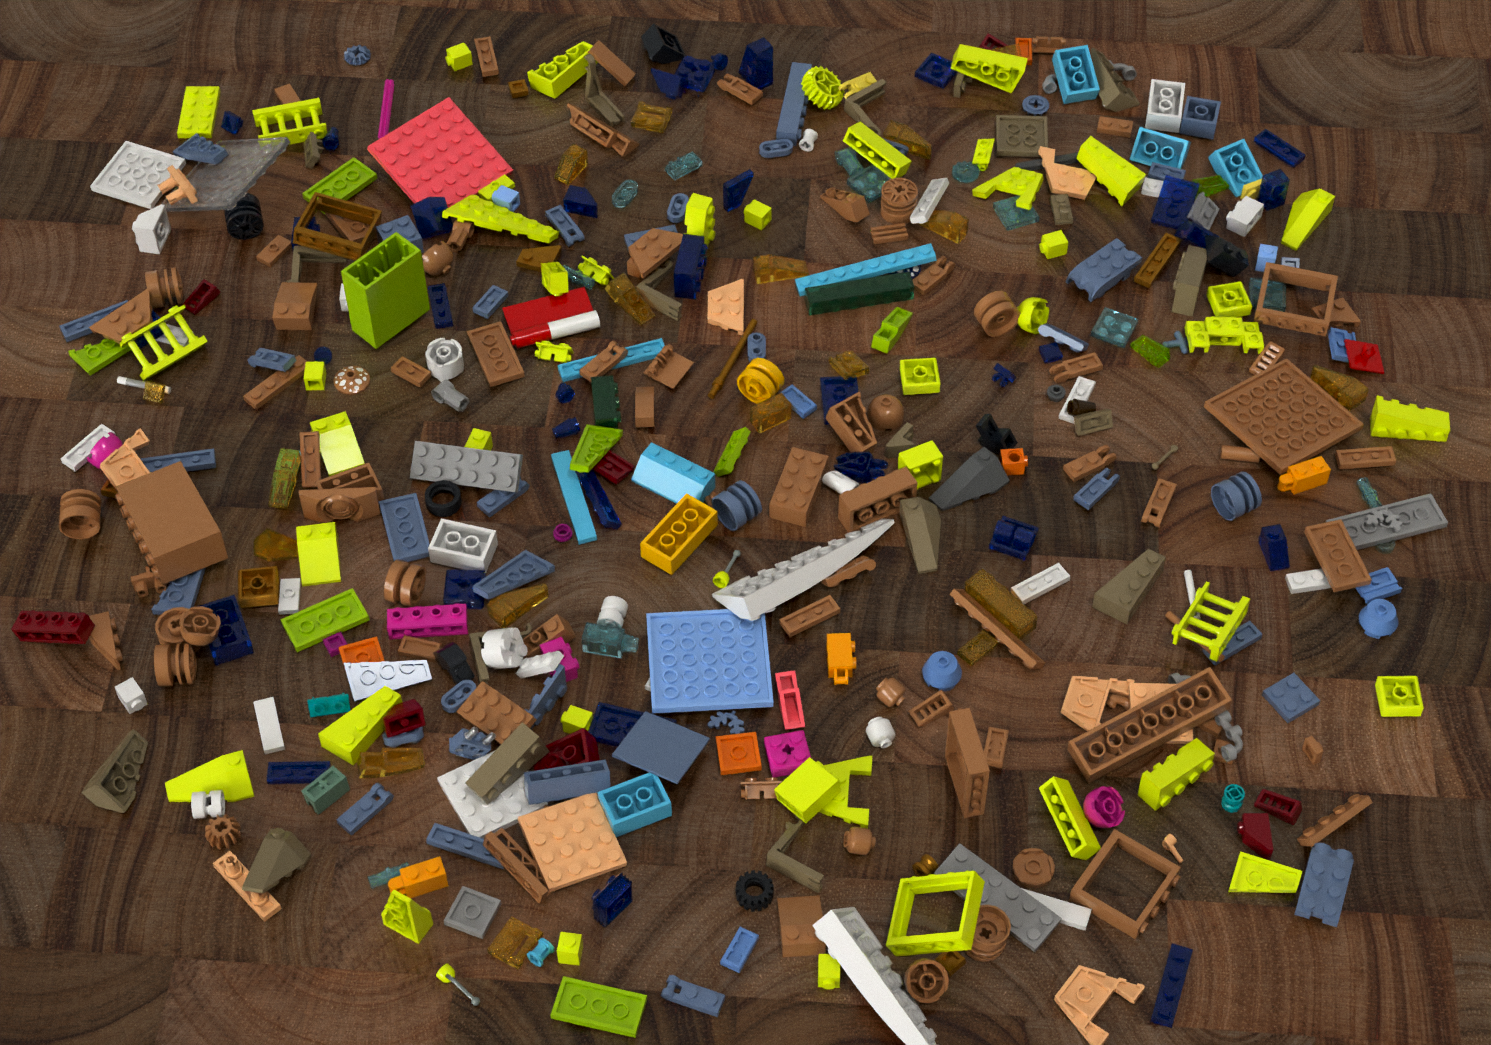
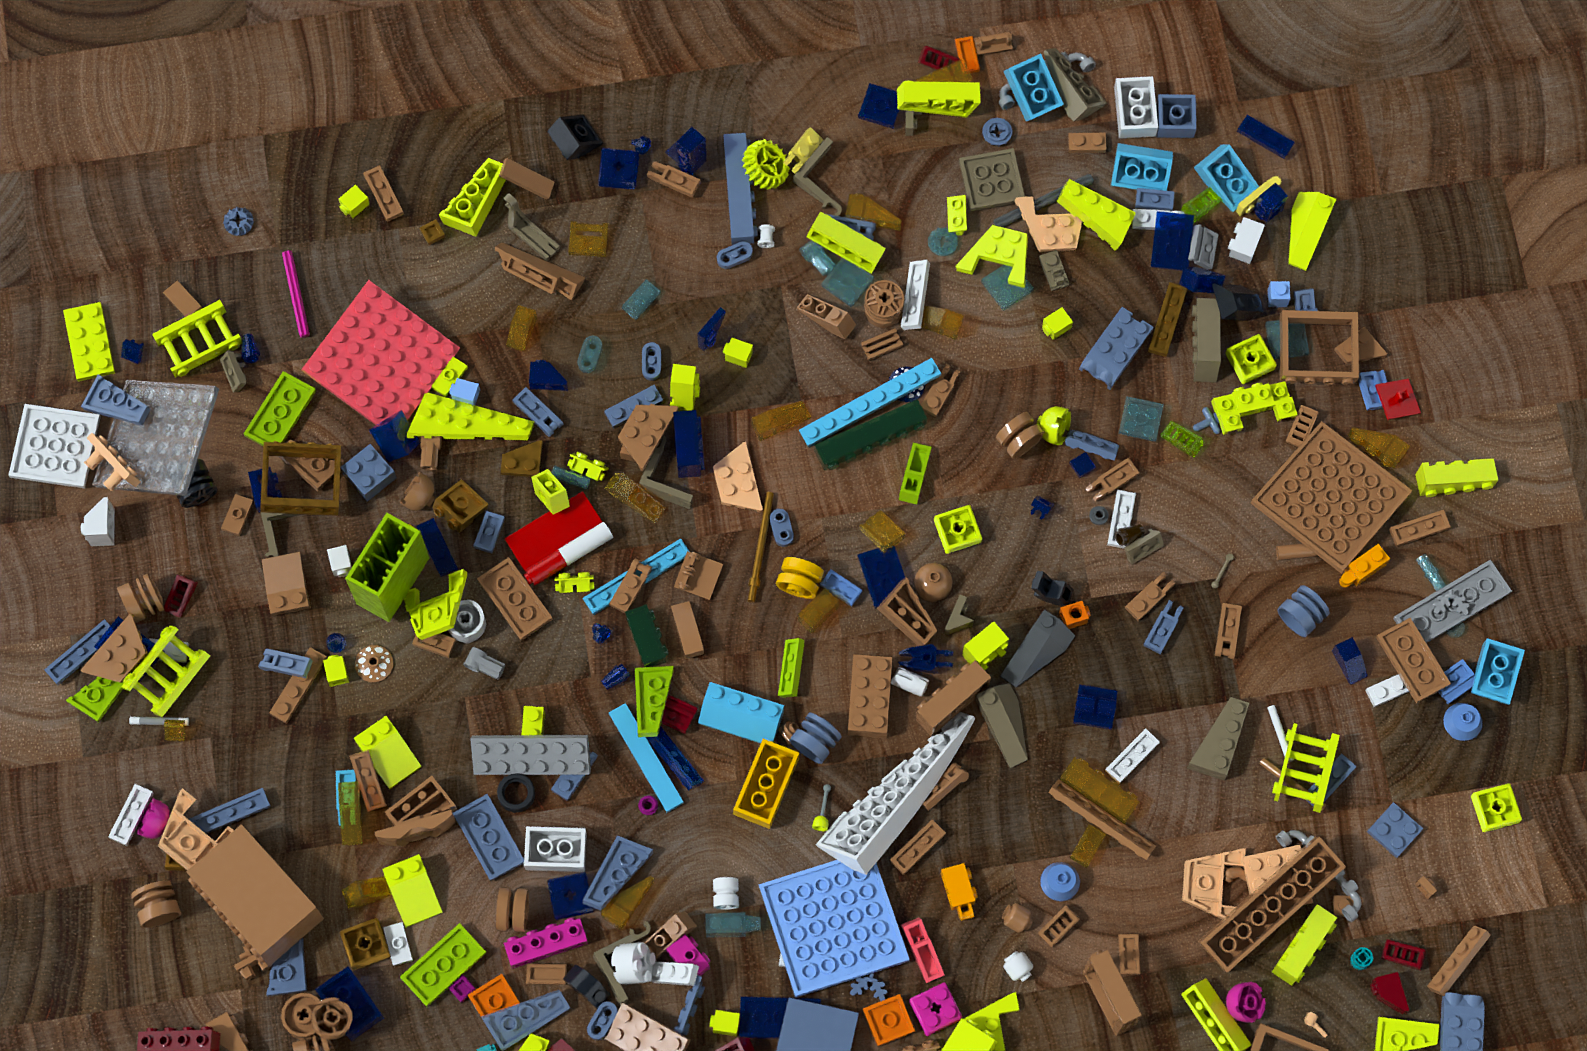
camera: 15 degrees left, 20 degrees up
(422, 341) = (436, 613): none -> neon yellow wing
(470, 277) = (459, 506): none -> pearl gold plate
(669, 83) = (596, 191): clear blue slope -> none
(1422, 578) = (1497, 671): none -> medium azure slope

